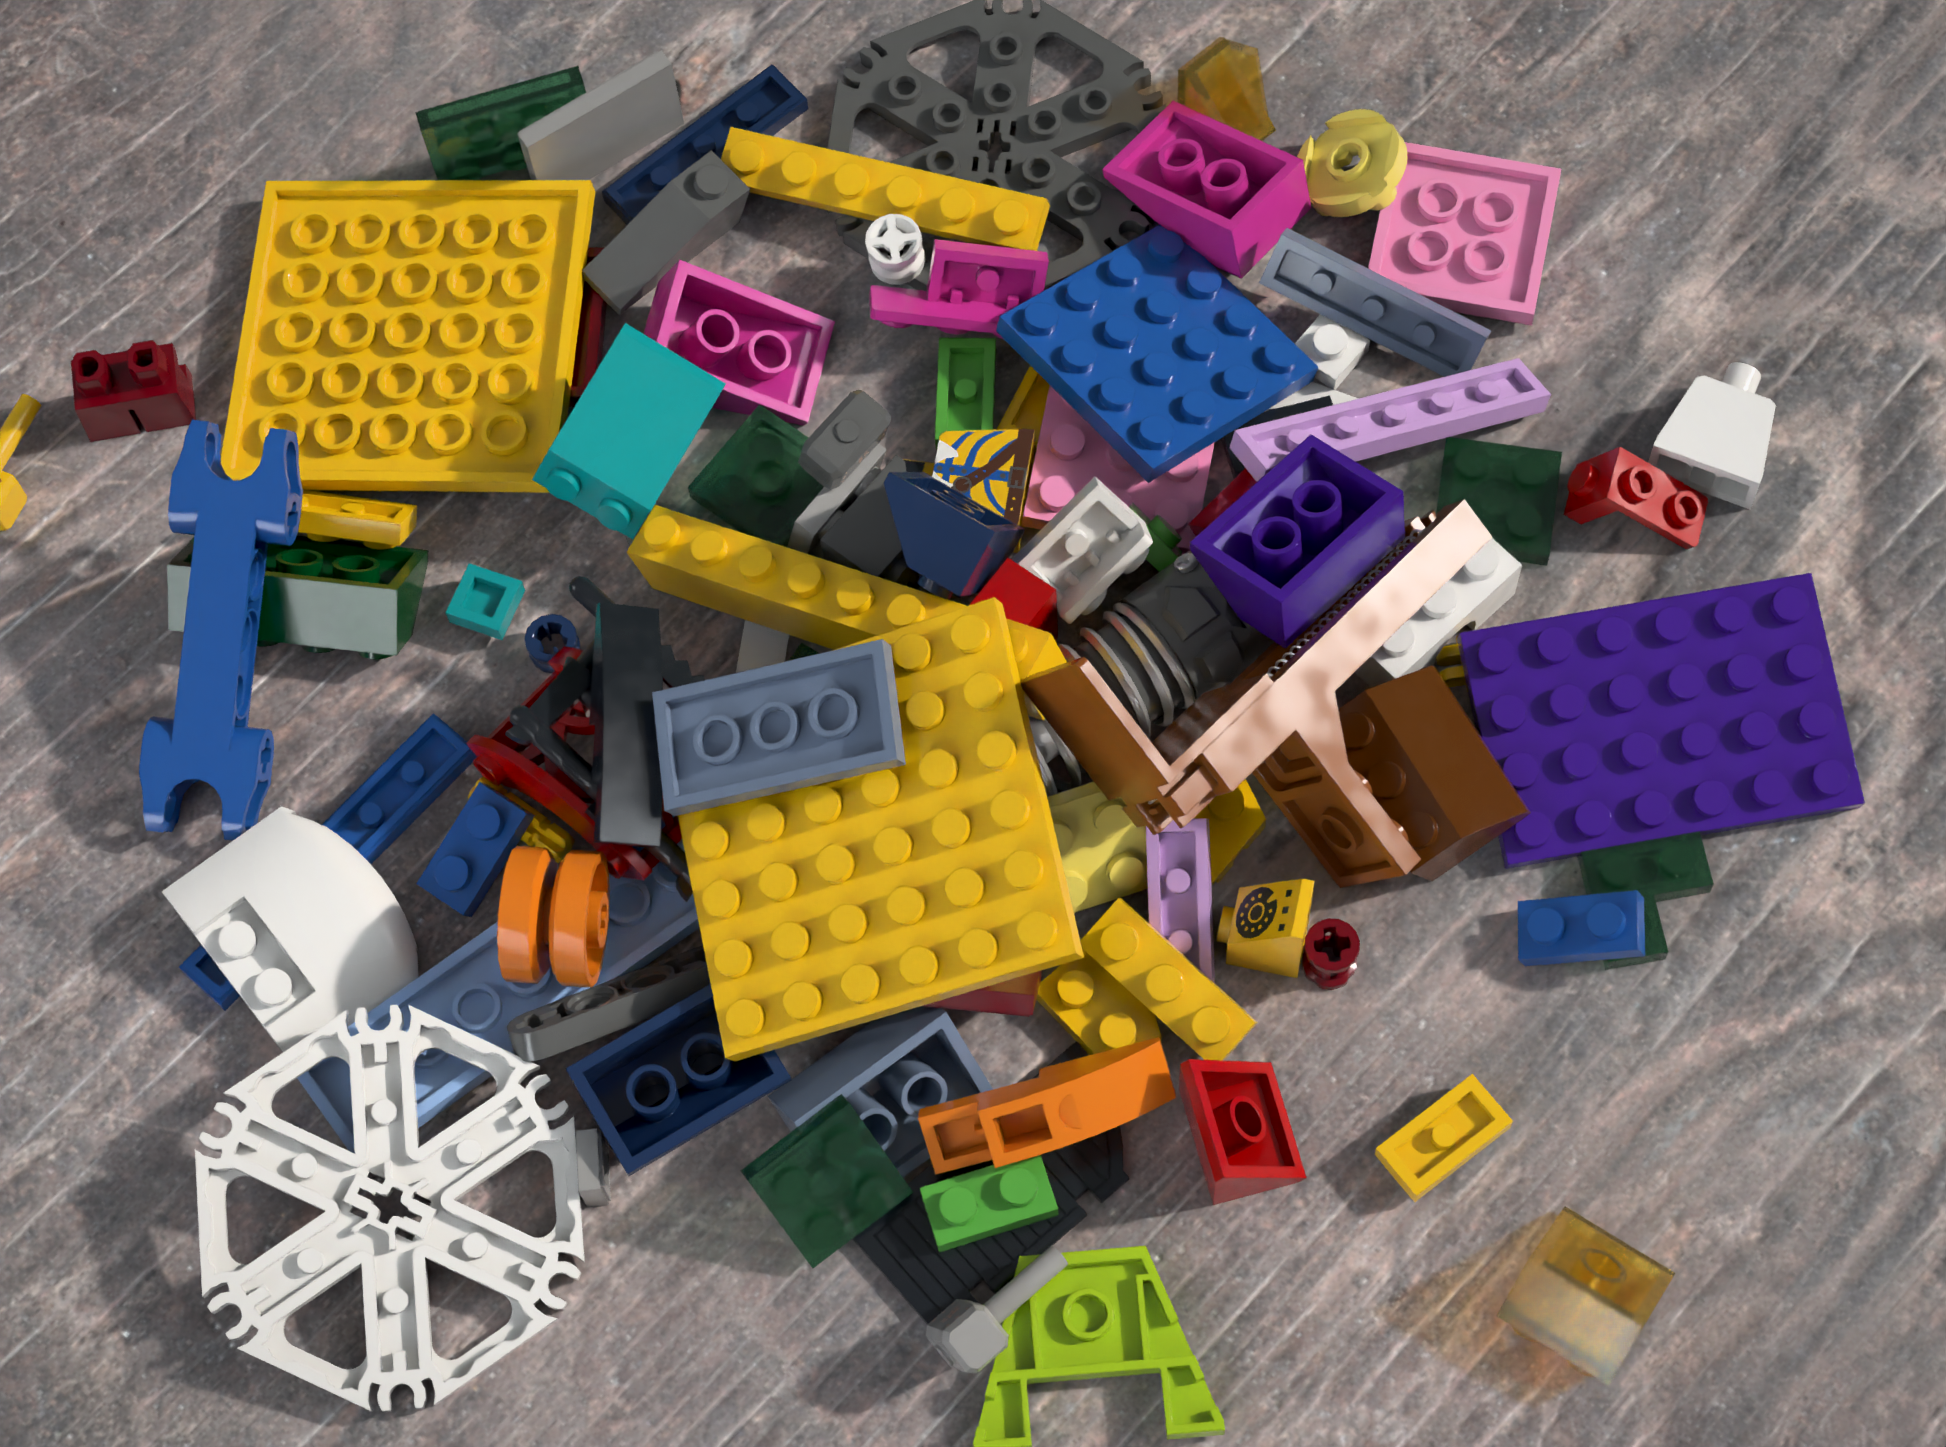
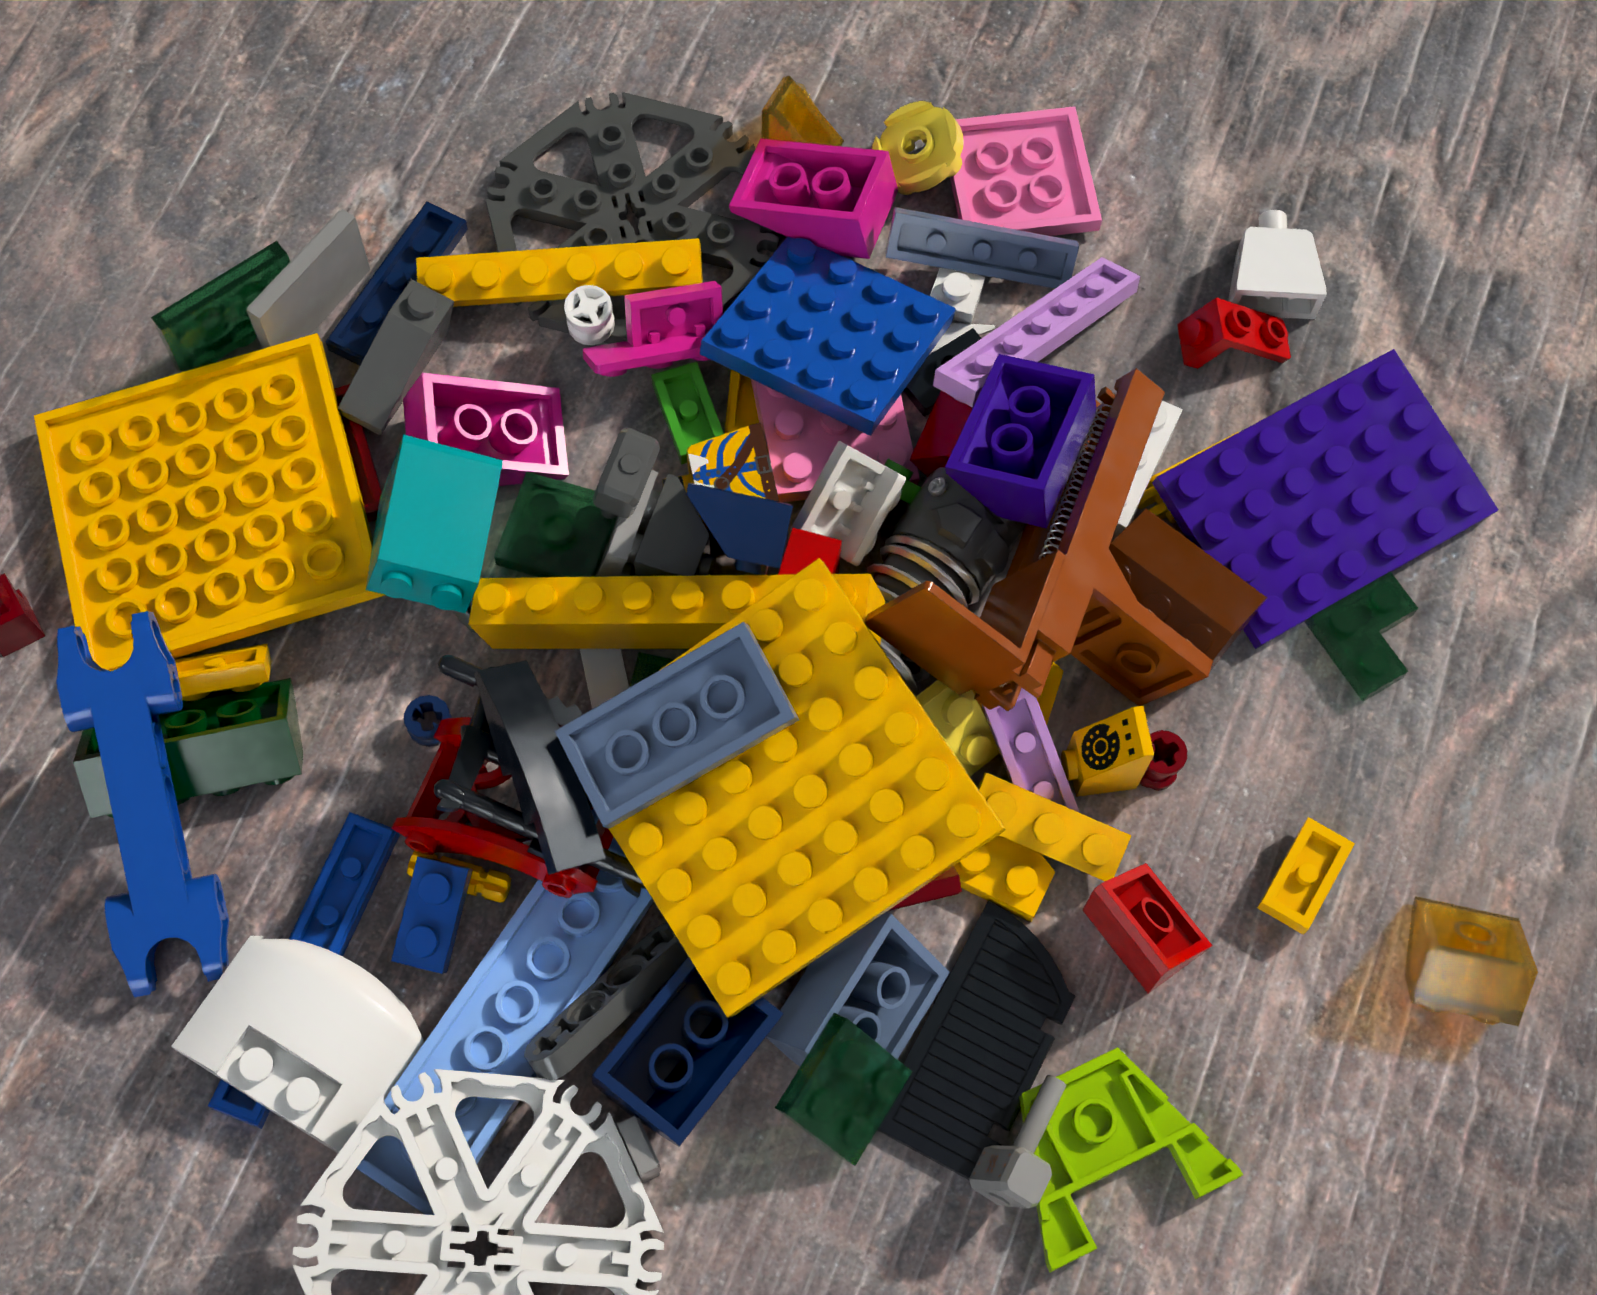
camera: 30 degrees left, 0 degrees up
(485, 601) = (358, 704): teal plate -> none
(553, 916) = (533, 948): orange wheel -> none
(988, 1202) = (976, 1056): bright green plate -> none
(1049, 1111) = (1000, 968): orange slope -> none
(1508, 491) = (1122, 348): clear green plate -> none
(1581, 928) = (1339, 675): blue plate -> none

